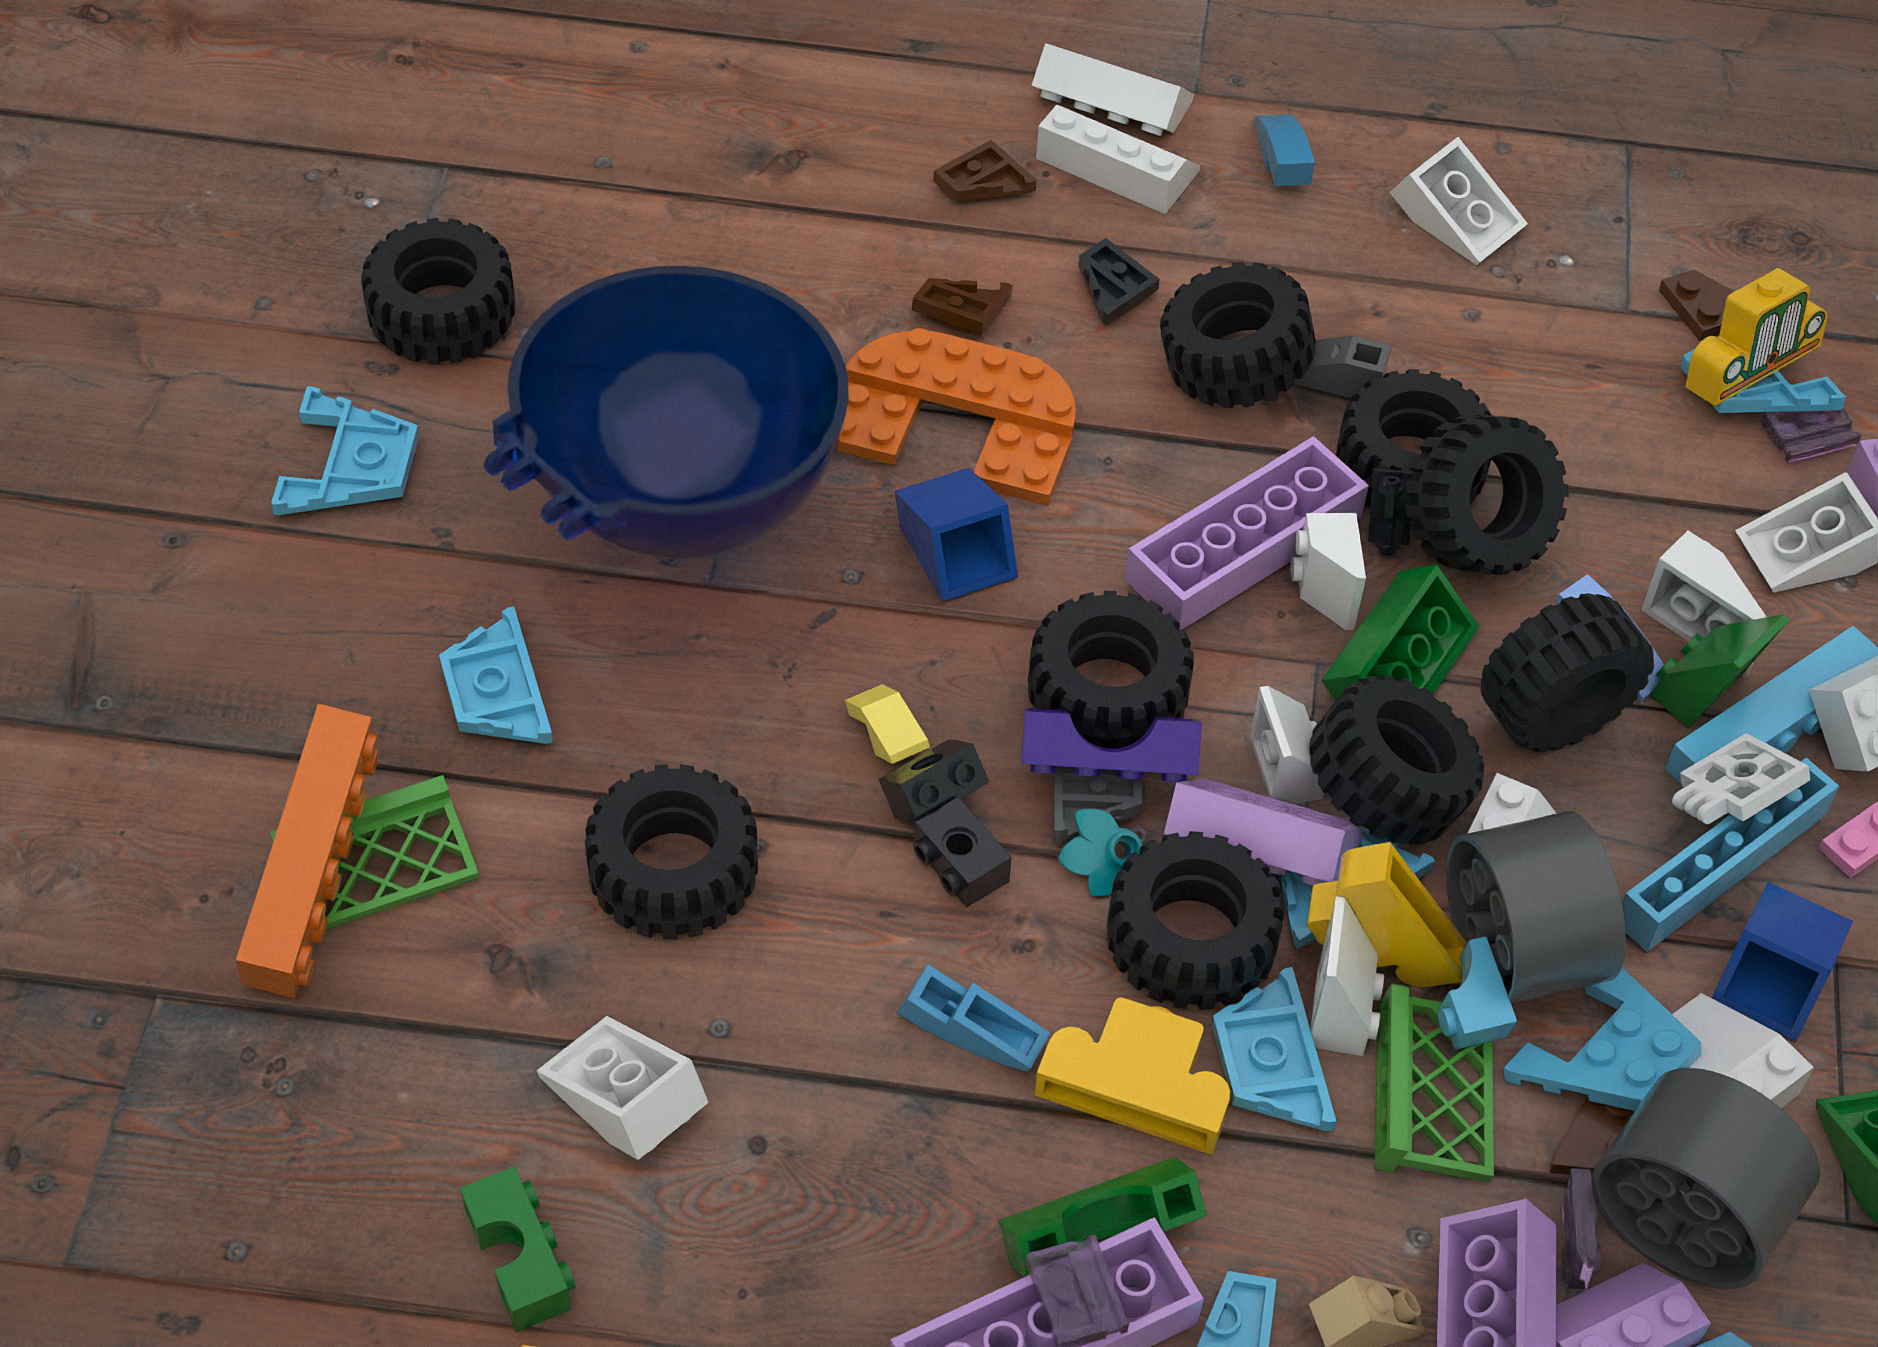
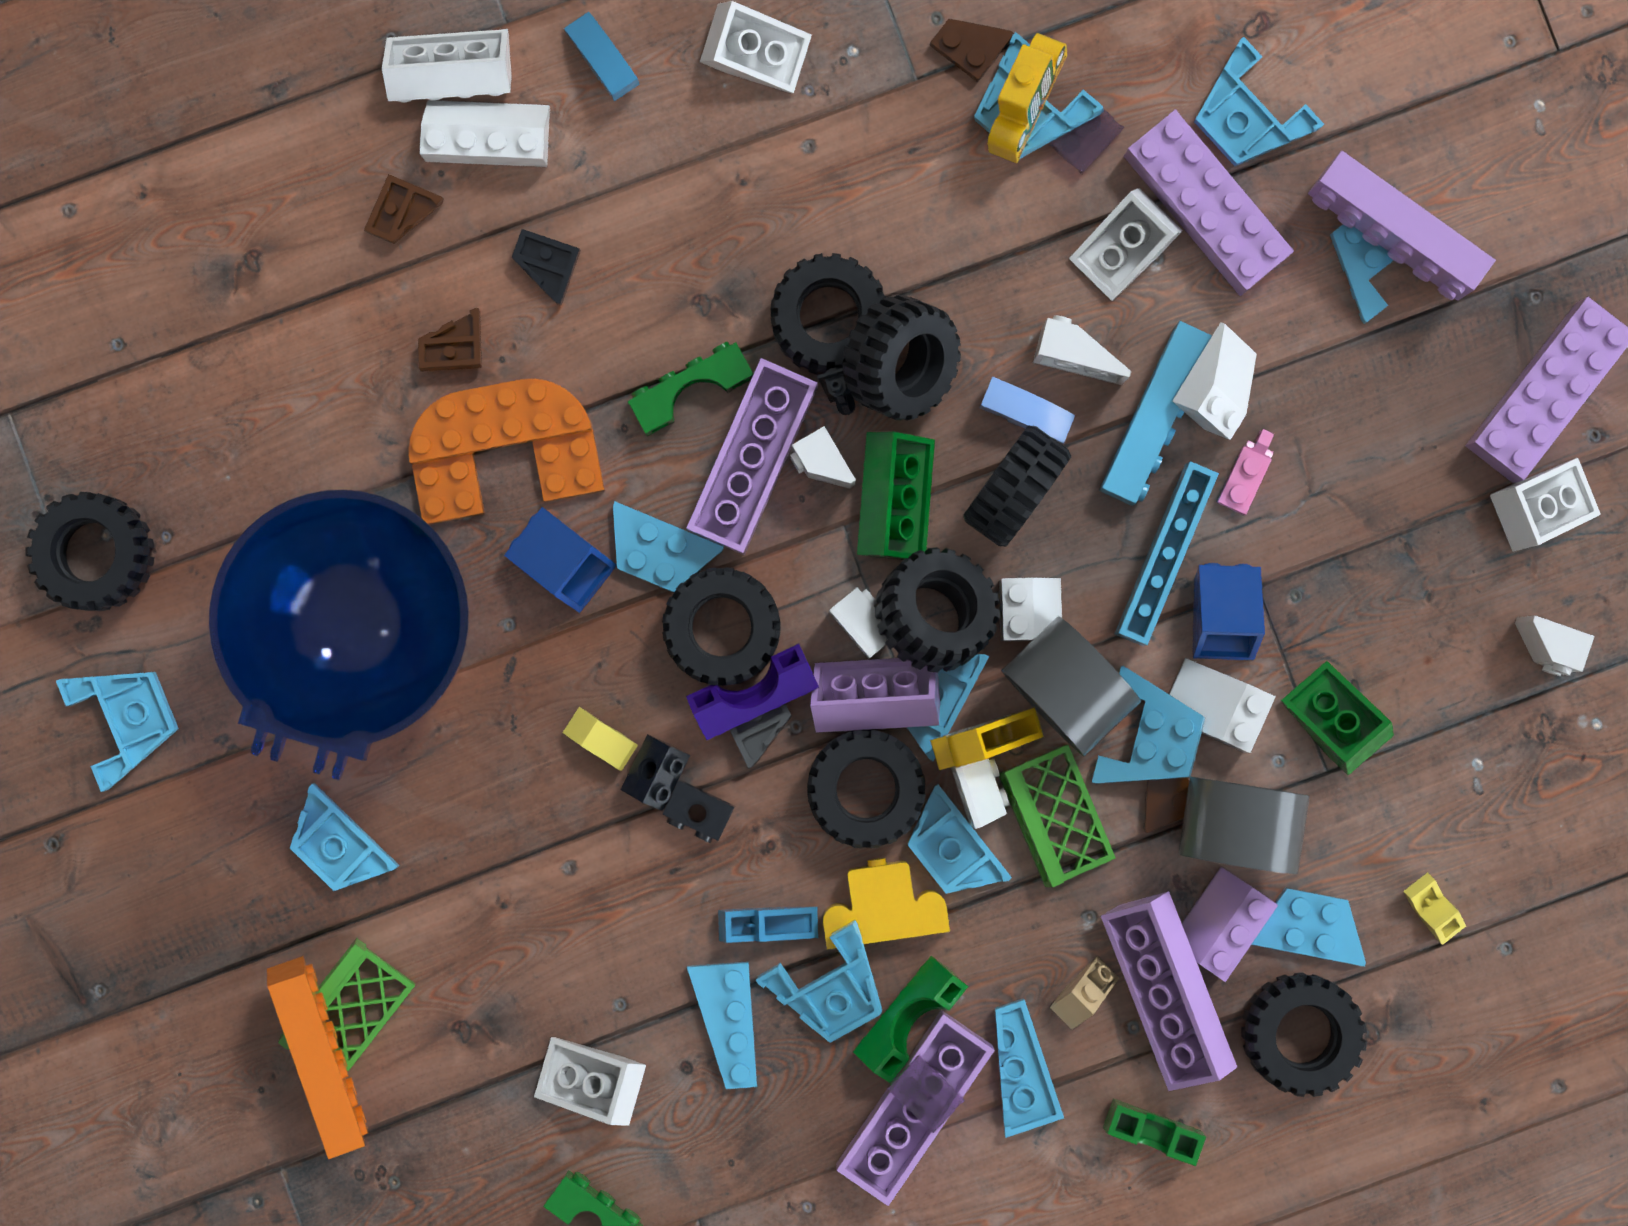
camera: 25 degrees left, 35 degrees up
(677, 898) = (488, 935): black tyre -> none
(853, 1104) = (727, 1011): none -> medium azure wing
(1018, 1145) = (837, 999): none -> medium azure wing
(1066, 566) = (658, 549): none -> medium azure wing
(1094, 852) = (779, 764): teal plate -> none
(1163, 444) = (656, 405): none -> green arch
(1243, 367) = (628, 281): black tyre -> none
(1345, 365) = (735, 268): dark grey slope -> none
(1480, 1006) = (1061, 761): medium azure arch -> none
(1579, 1225) = (1187, 885): clear purple plate -> none
(1712, 666) = (1106, 411): green slope -> none
(1739, 780) = (1156, 509): white piece -> none

